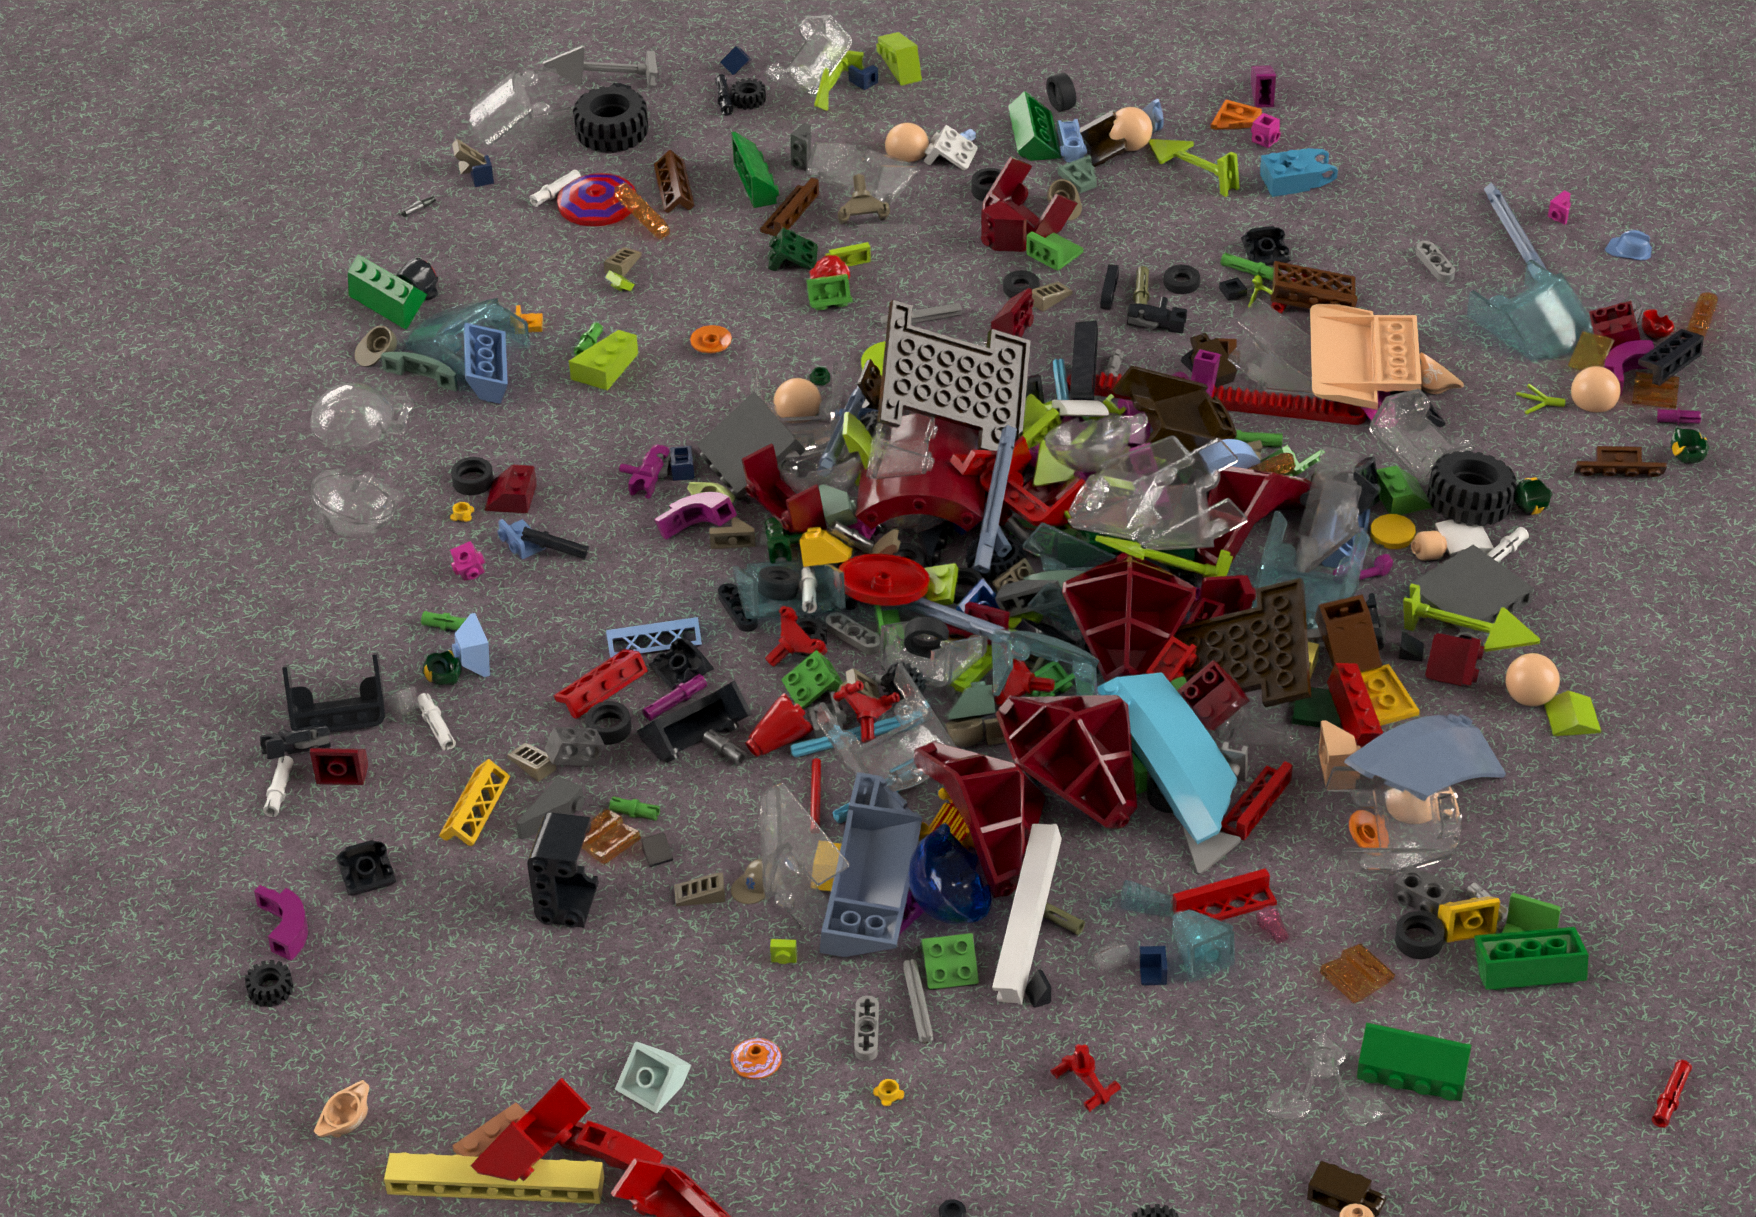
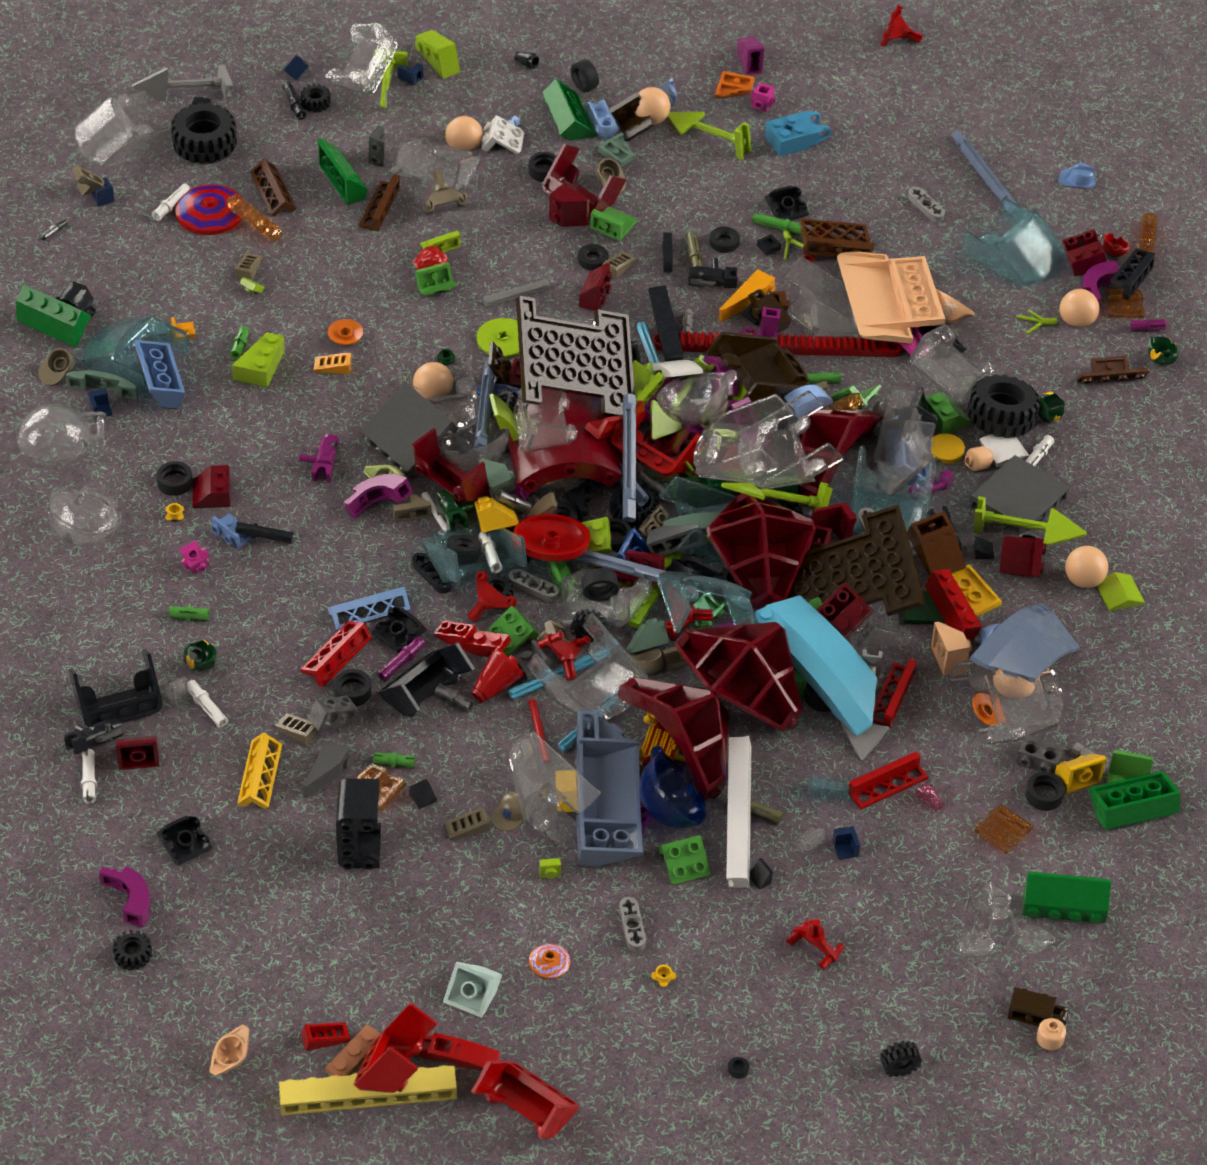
camera: 15 degrees left, 5 degrees up
(413, 387) = (99, 401): none -> dark blue panel
(454, 1115) = (317, 1042): none -> red slope
(472, 646) = (224, 634): light blue slope -> none
(682, 466) = (353, 452): dark blue slope -> none
(694, 372) = (342, 367): none -> light orange slope
(759, 683) = (470, 639): none -> red slope
(763, 548) = (440, 519): none -> white bar
(793, 248) = (388, 240): dark green bracket -> none
(918, 1001) = (667, 896): light grey axle -> none
(1002, 72) = (529, 60): none -> black cone
(1173, 659) = (805, 583): red bracket -> none
(1180, 344) = (739, 300): none -> light orange slope
(1203, 943) = (880, 819): clear light blue slope -> none
(1448, 71) = (898, 29): none -> red axle
(1560, 207) = (1016, 148): dark pink bracket -> none
(1590, 351) = (1069, 275): clear yellow piece -> none

